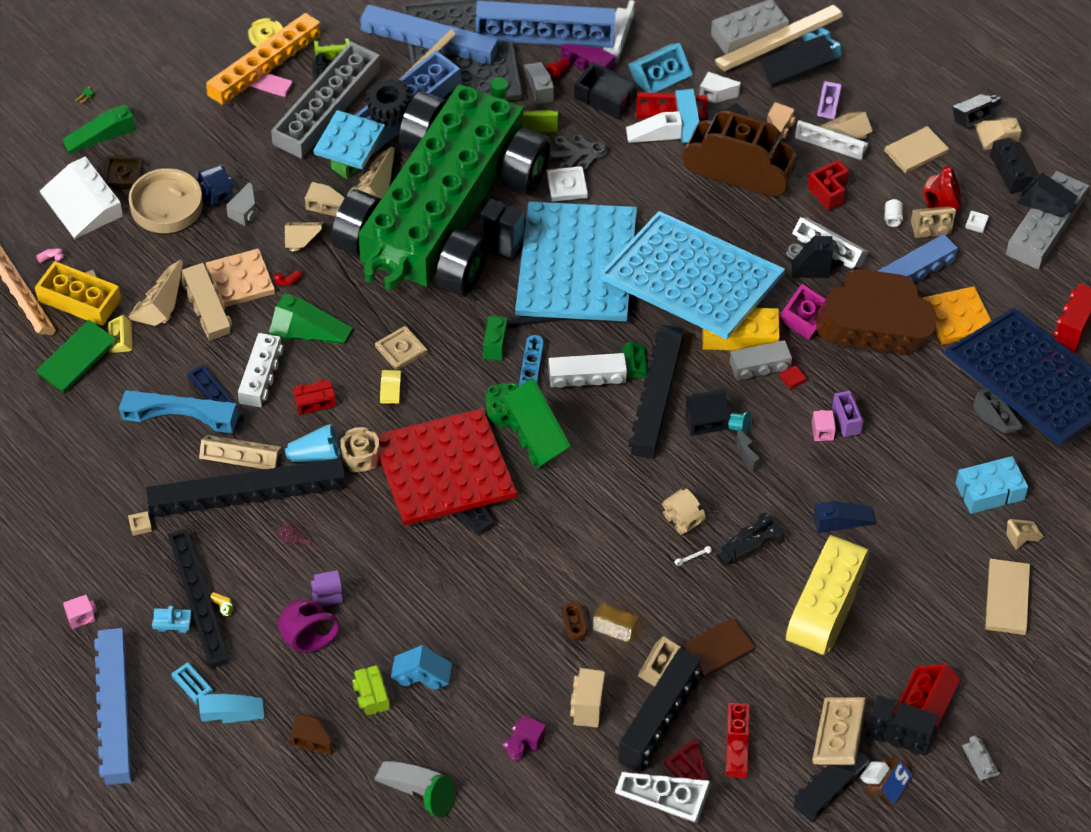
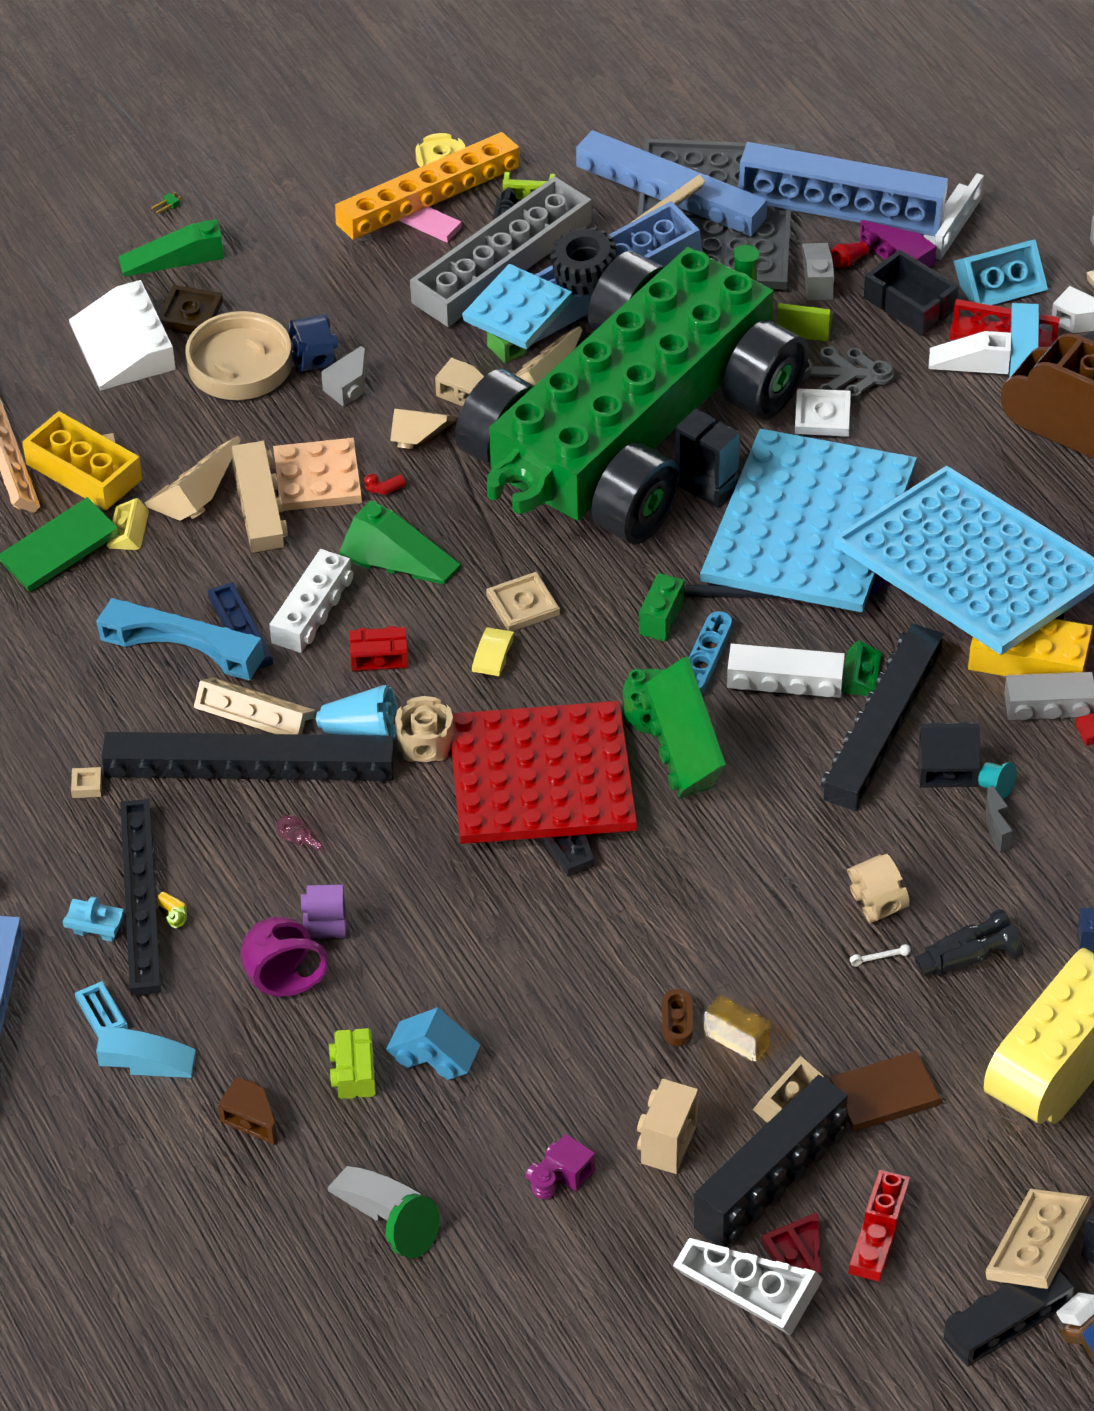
camera: 15 degrees right, 5 degrees down
(49, 253) = (56, 404): bright pink arm -> none

